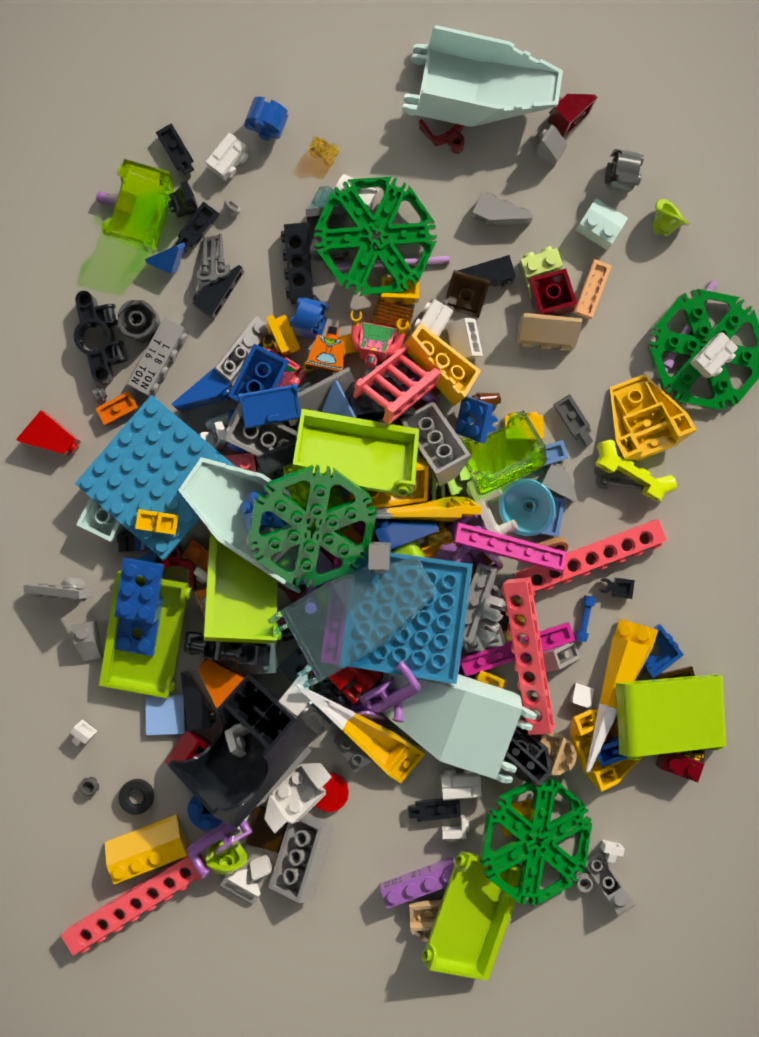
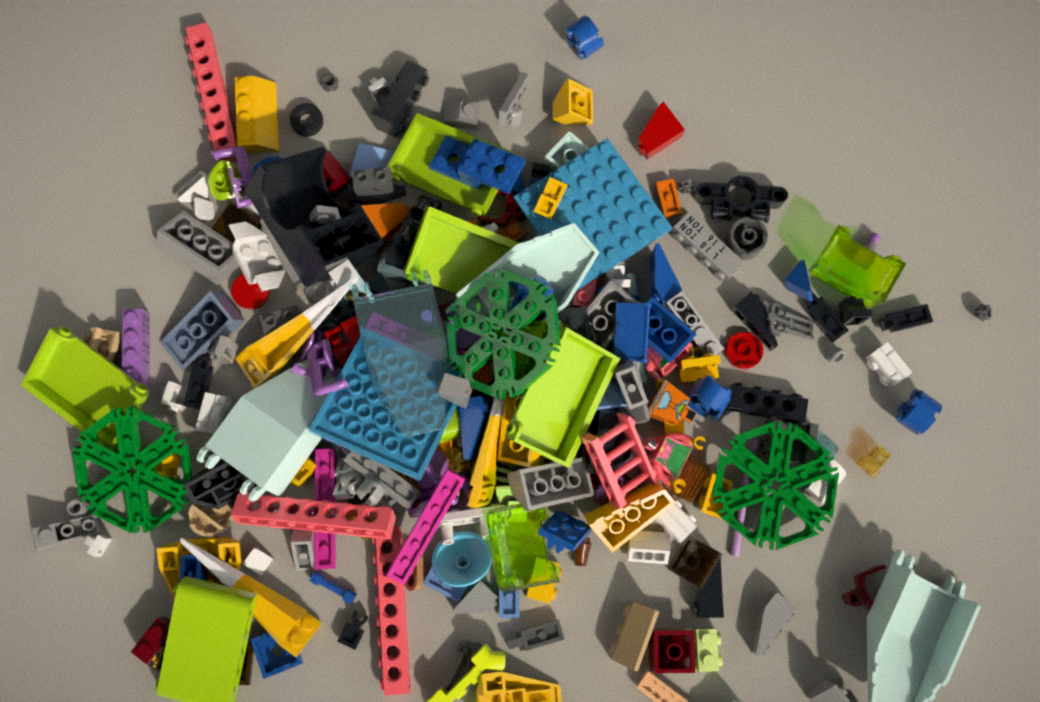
camera: 110 degrees right, 10 degrees down
(43, 529) = (573, 104): none -> yellow slope
(87, 706) = (400, 99): none -> black wedge
(147, 77) = (983, 312): none -> dark grey plate
(187, 705) = (373, 181): none -> dark grey brick
(251, 297) = (744, 350): none -> red tile
(323, 392) = (630, 385): none -> light grey slope
(381, 825) = (201, 328): none -> sand blue slope
(399, 795) = (223, 350): none -> light grey slope

